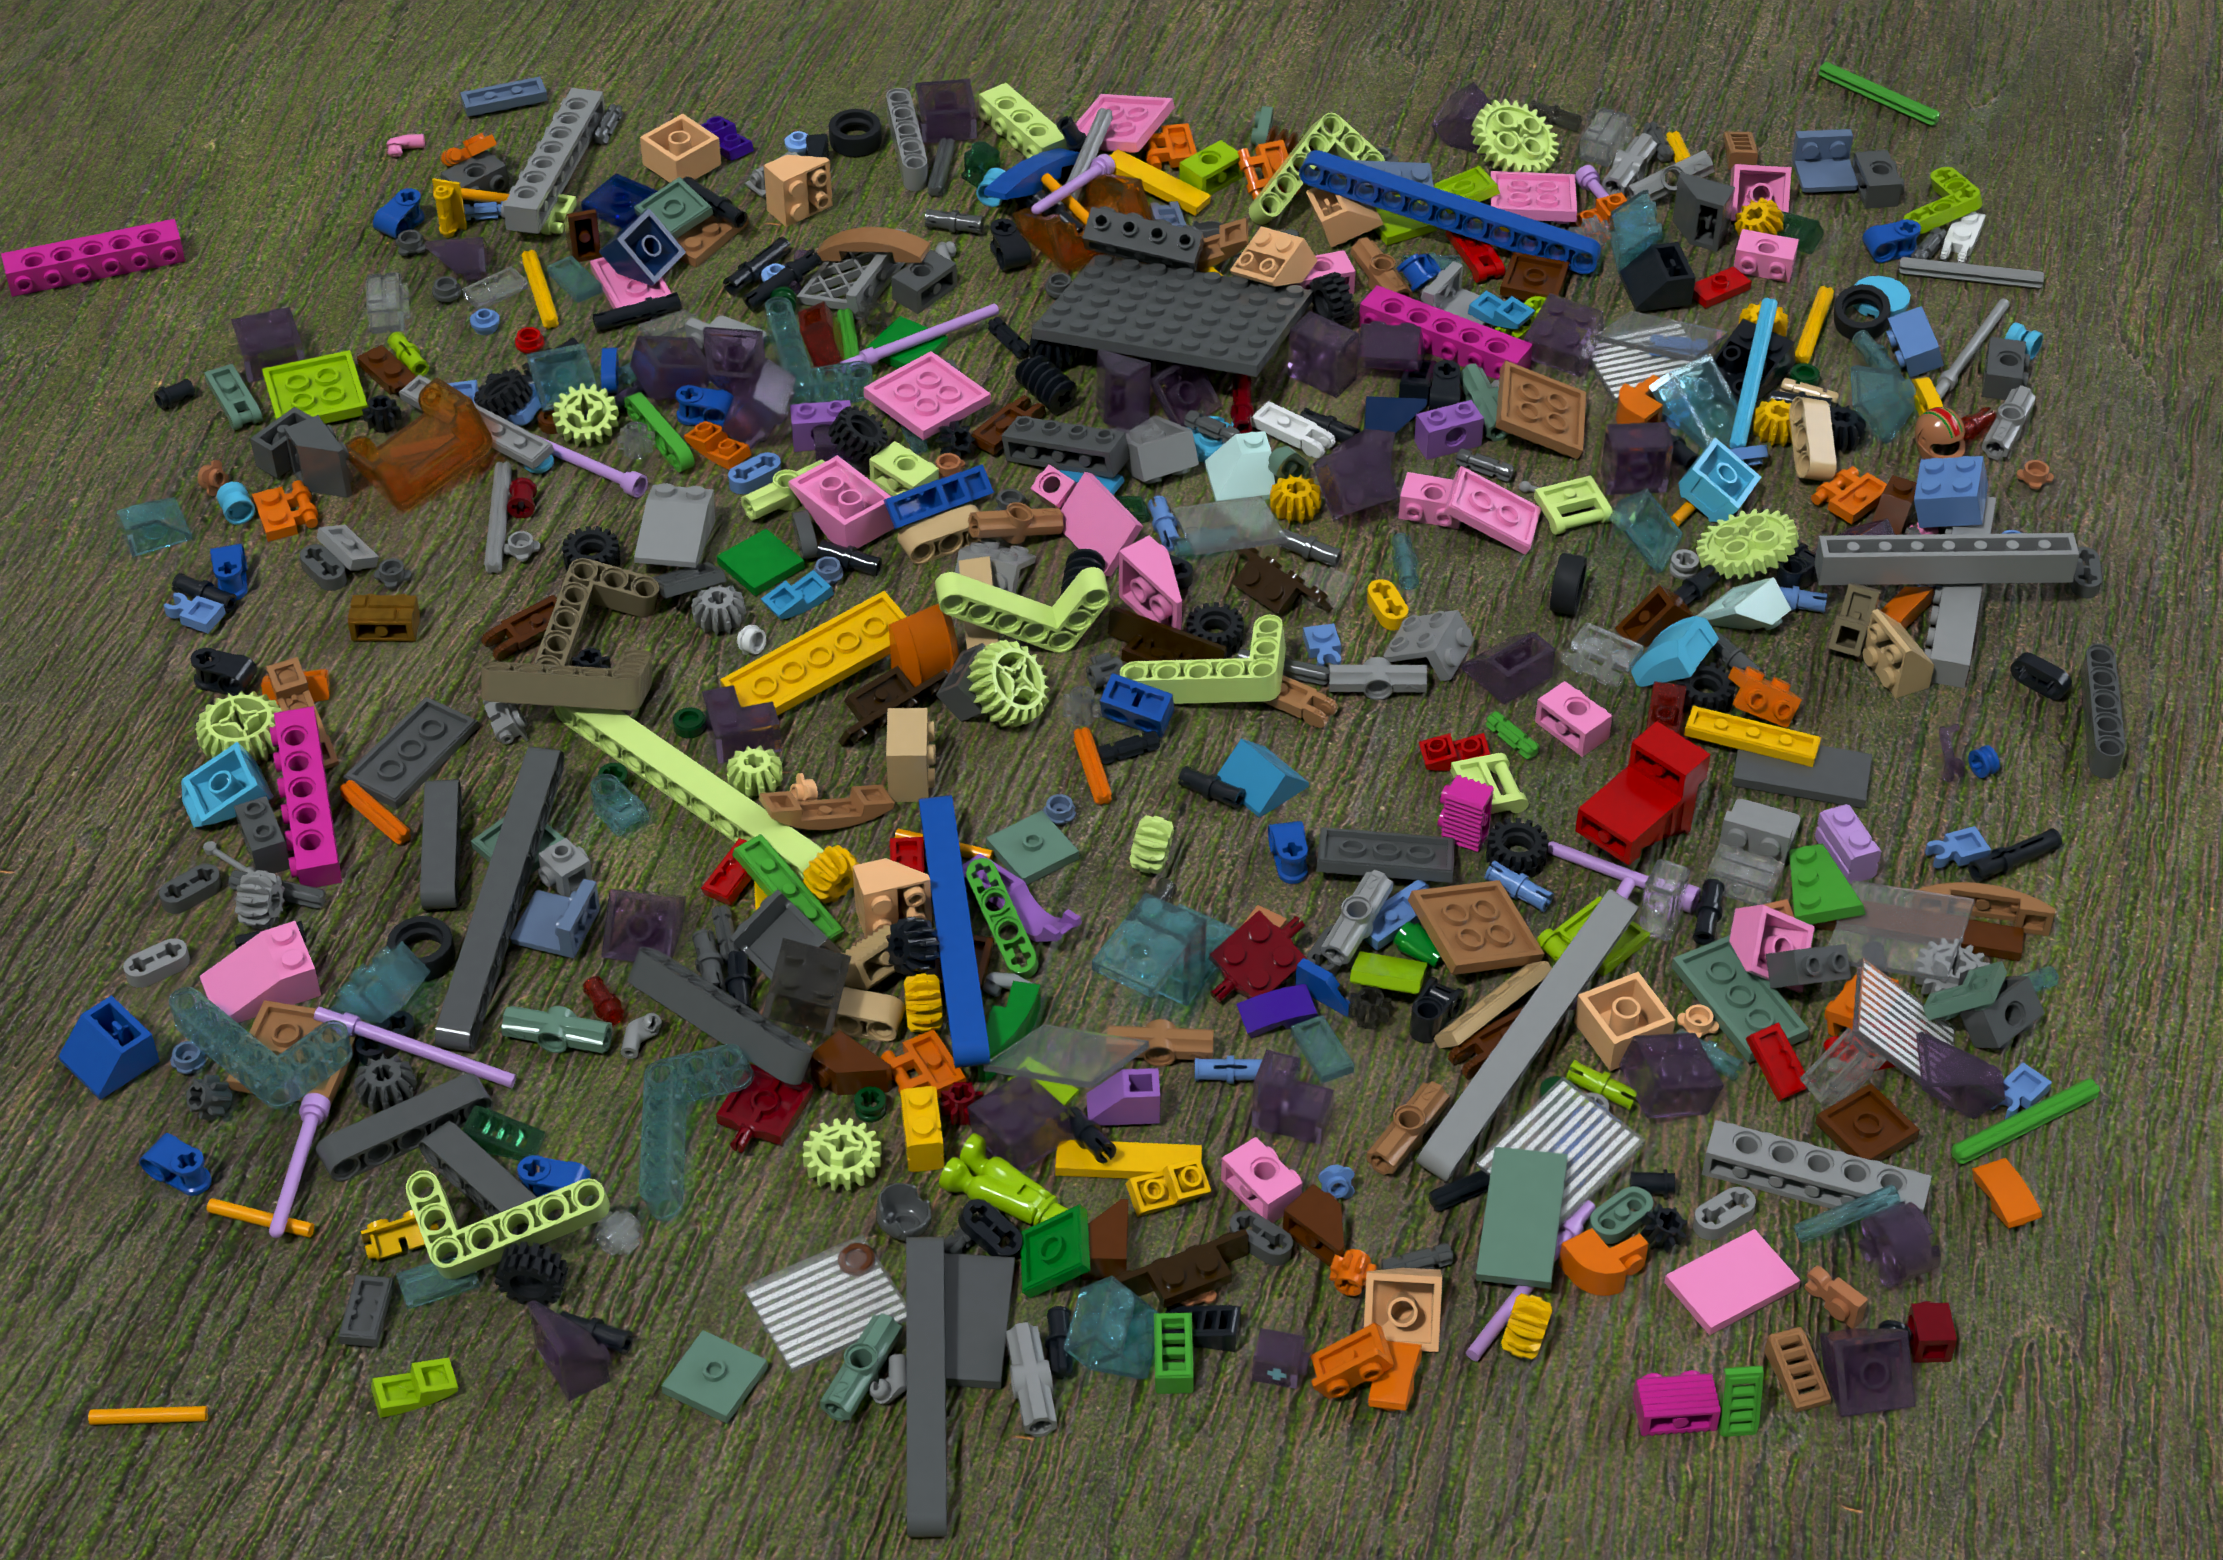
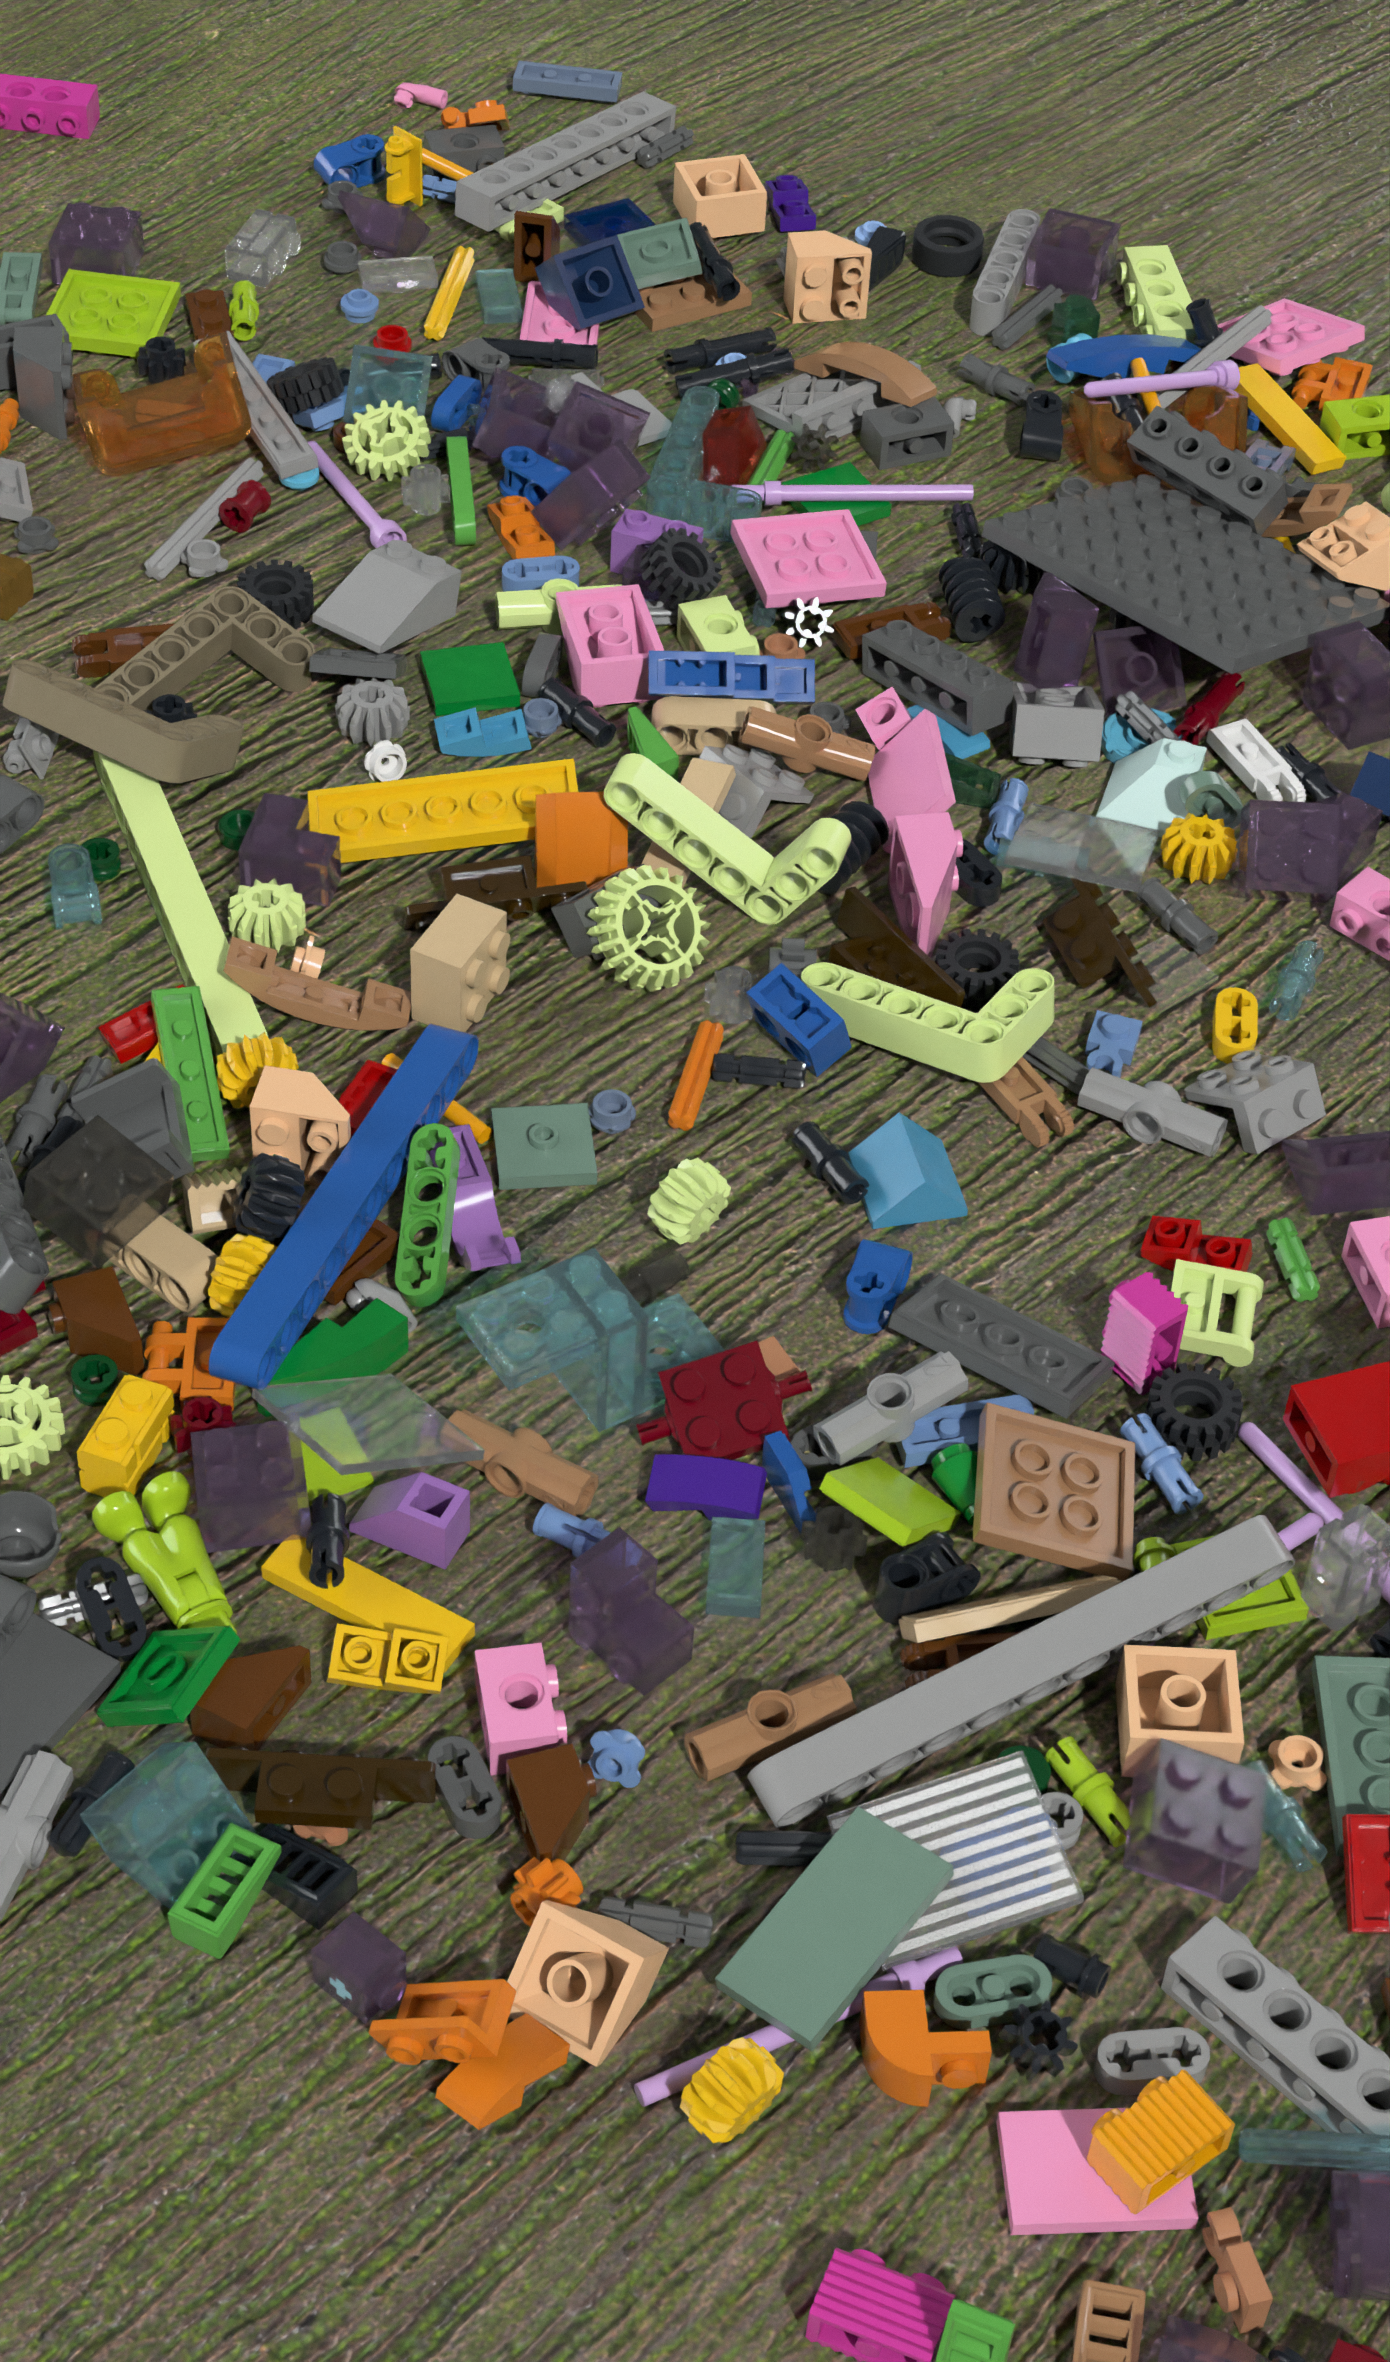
camera: 25 degrees right, 0 degrees up
(606, 333) = (474, 360): none -> dark grey piece
(693, 339) = (559, 391): none -> clear plate
(916, 567) = (647, 741): none -> bright green slope
(1760, 1249) = (1158, 2139): none -> light orange brick

